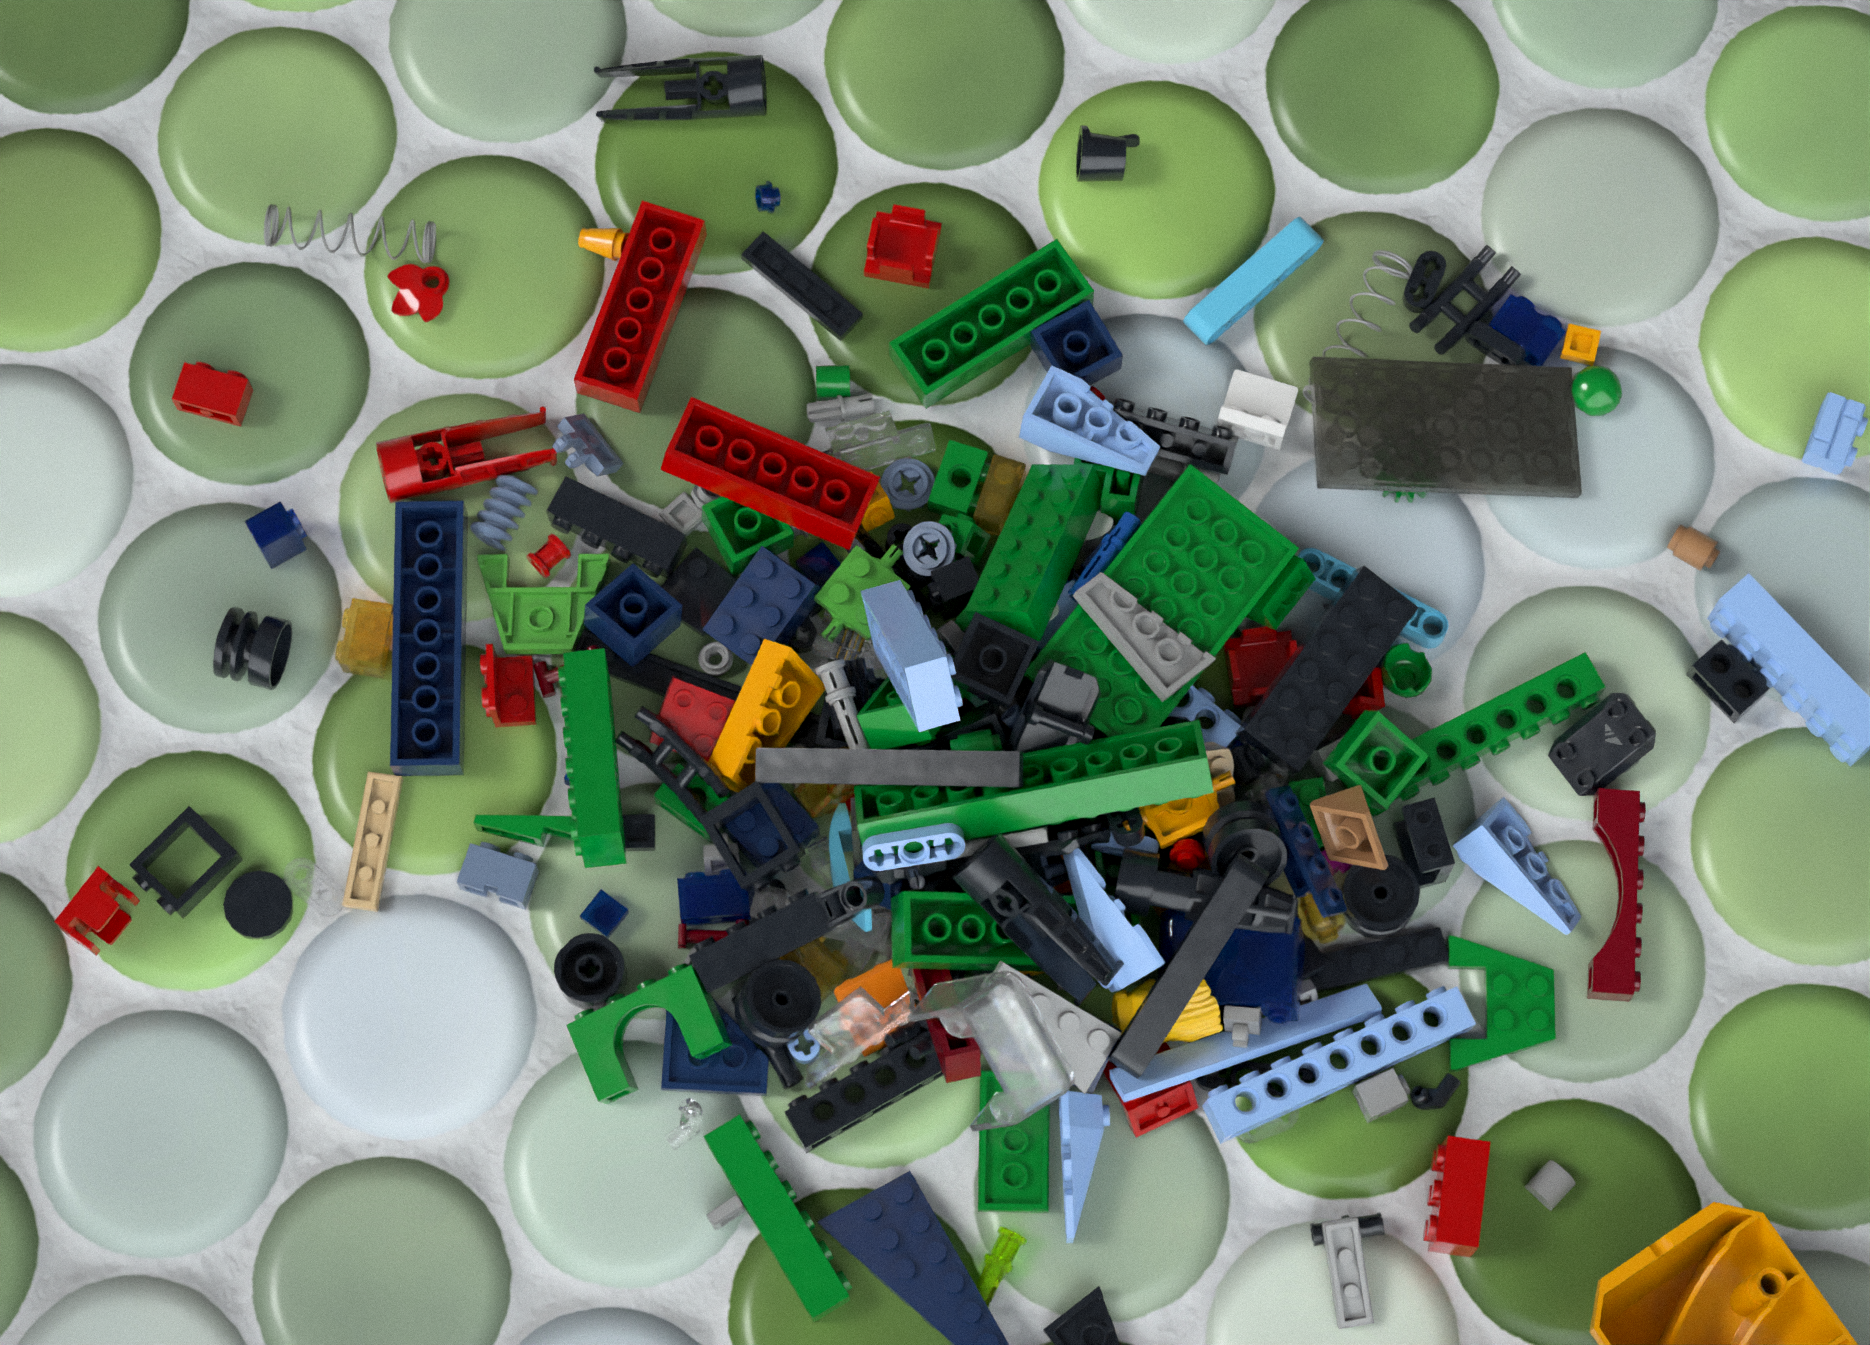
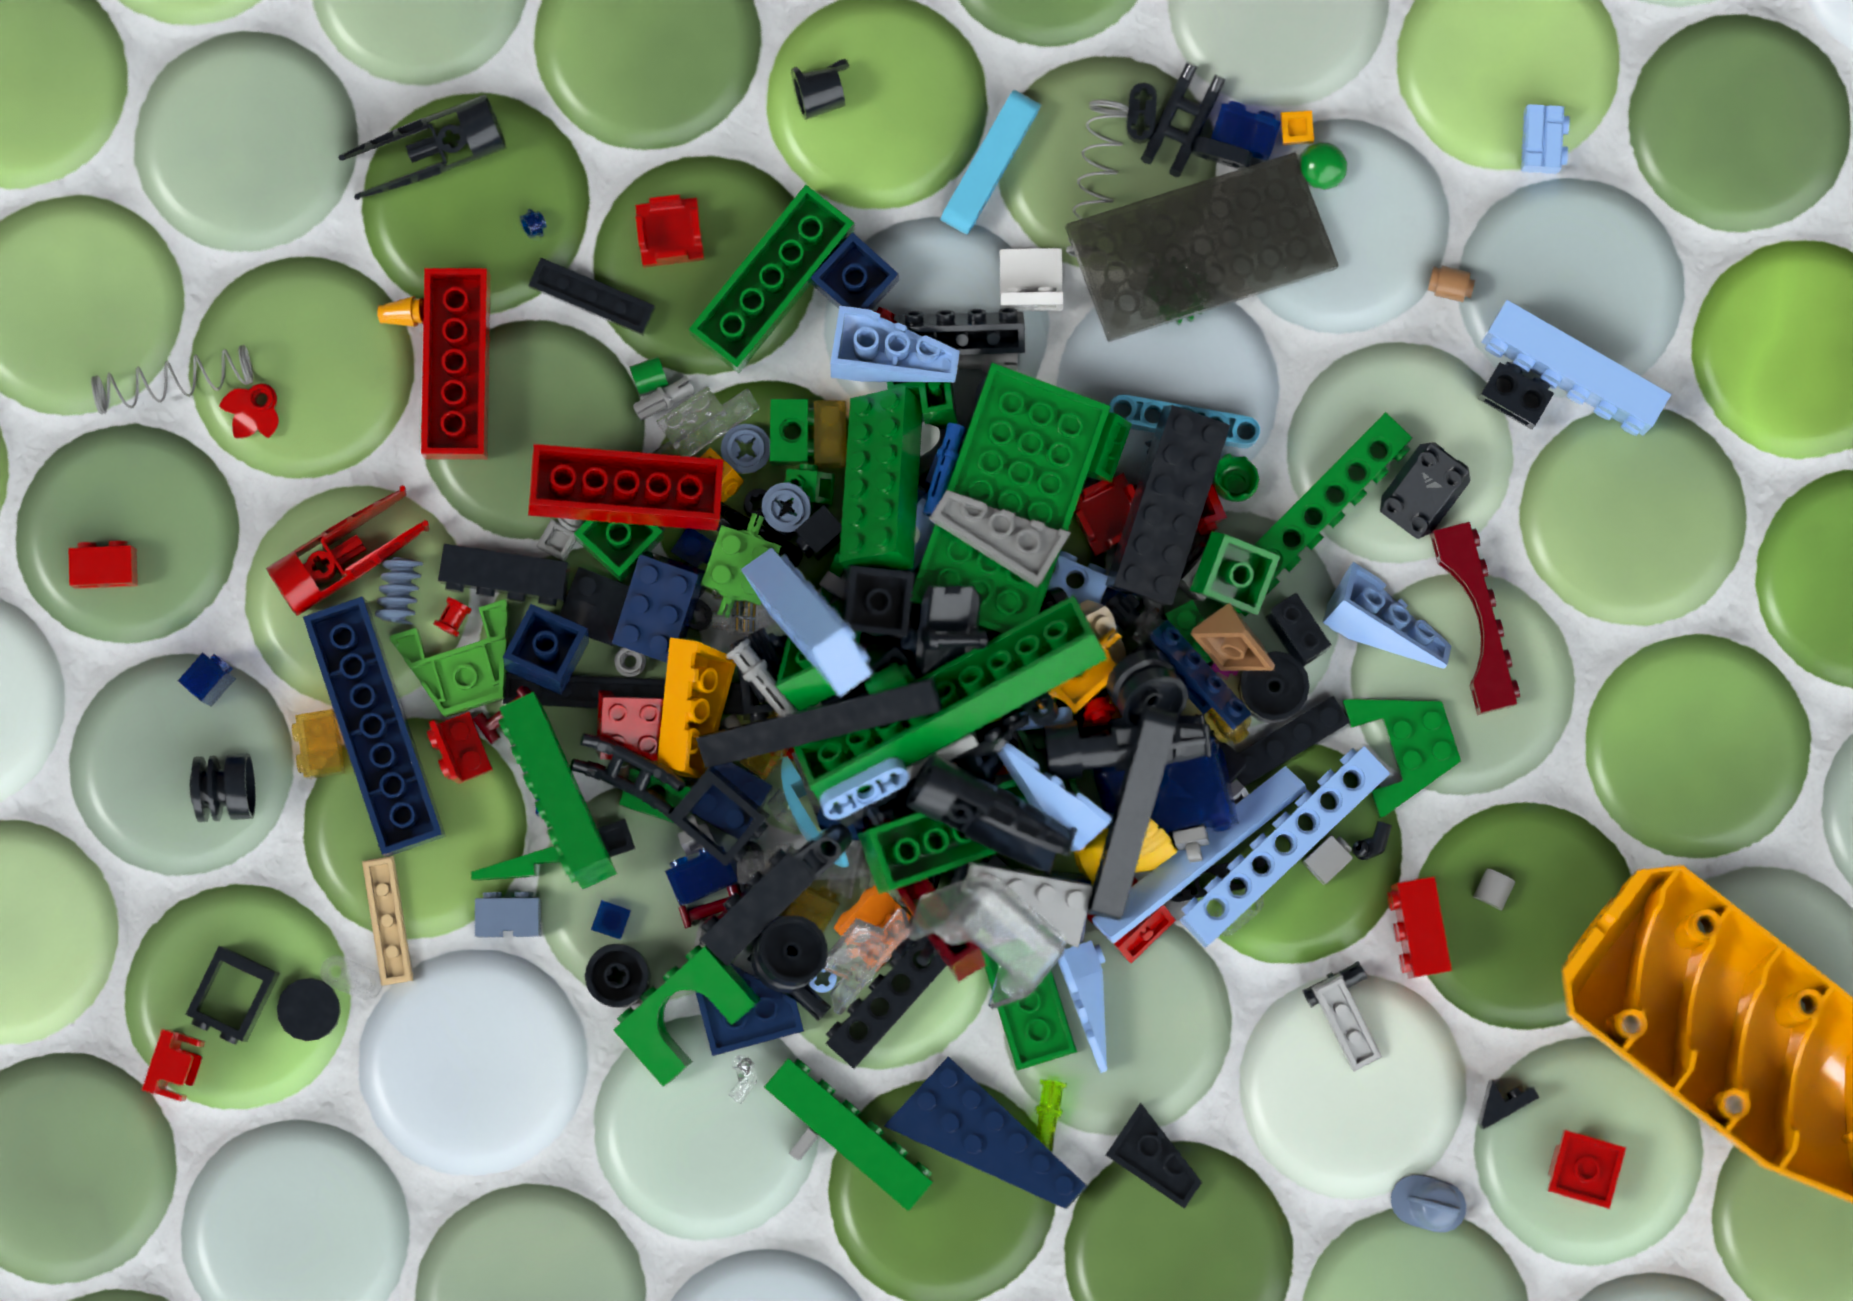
camera: 15 degrees left, 10 degrees up
(589, 446) = (454, 505): sand blue hinge -> none

